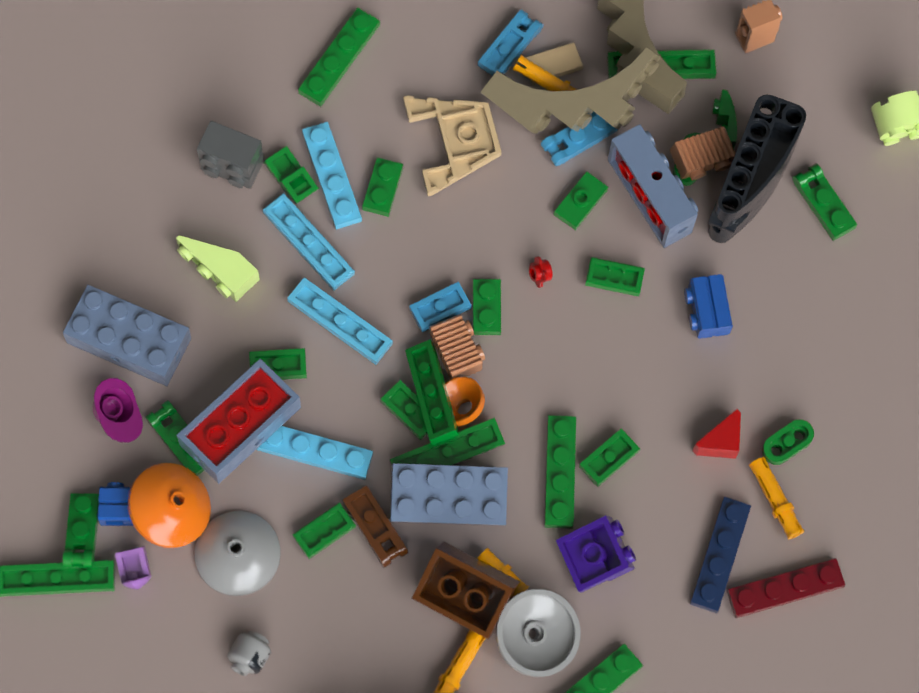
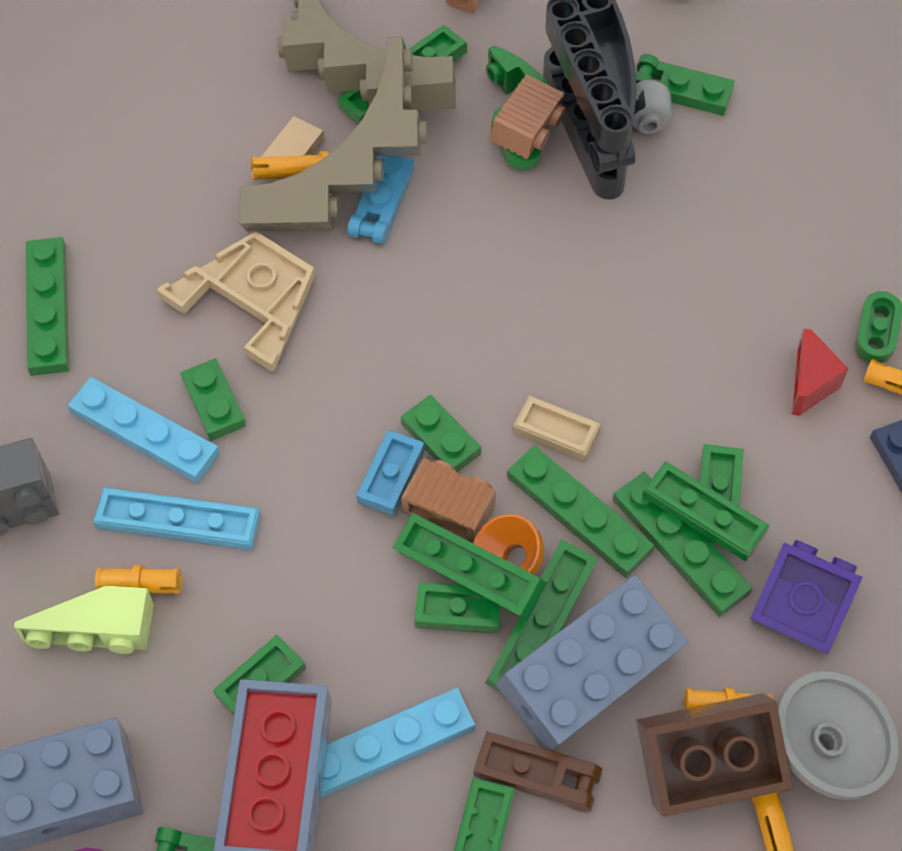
camera: 35 degrees left, 10 degrees down
(260, 261) = (155, 580): none -> light orange pin
(290, 175) = (95, 464): green slope -> none
(340, 321) = (289, 574): medium azure plate -> none
(510, 44) = (226, 164): dark azure plate -> none
(523, 410) = (580, 511): none -> green plate
(540, 271) = (465, 354): red plate -> none
(553, 353) = (556, 428): none -> tan tile
(581, 200) = (441, 257): green plate -> none
(584, 465) = (705, 511): none -> green tile
(615, 276) = (547, 302): green plate -> none
(652, 185) = (506, 182): sand blue brick -> none
(709, 306) = (672, 257): blue brick -> none
(787, 201) = (652, 107): none -> light grey head

